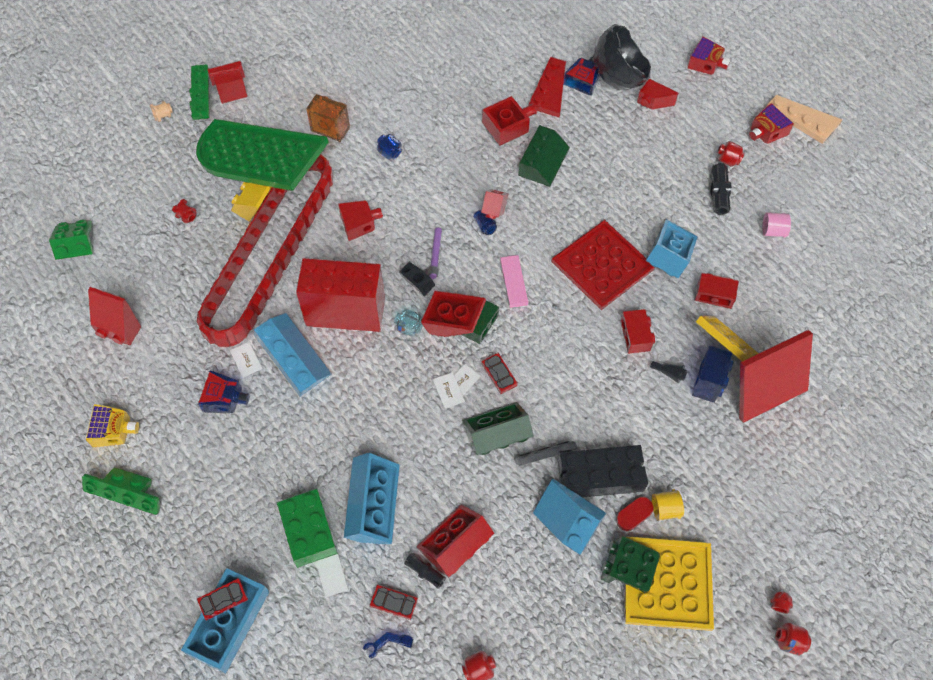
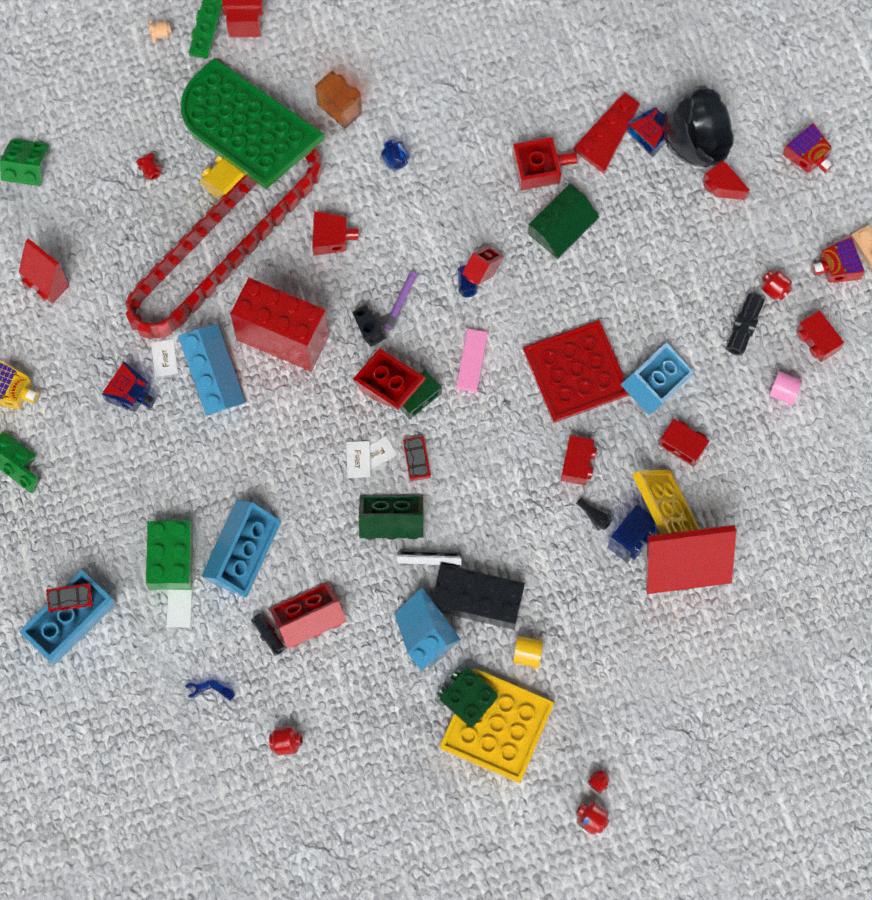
camera: 20 degrees right, 10 degrees up
(393, 602) = (228, 654): tile -> none
(408, 322) = (342, 373): clear light blue head -> none
(634, 514) = (494, 649): red tile -> none
(782, 180) = (819, 336): none -> red brick

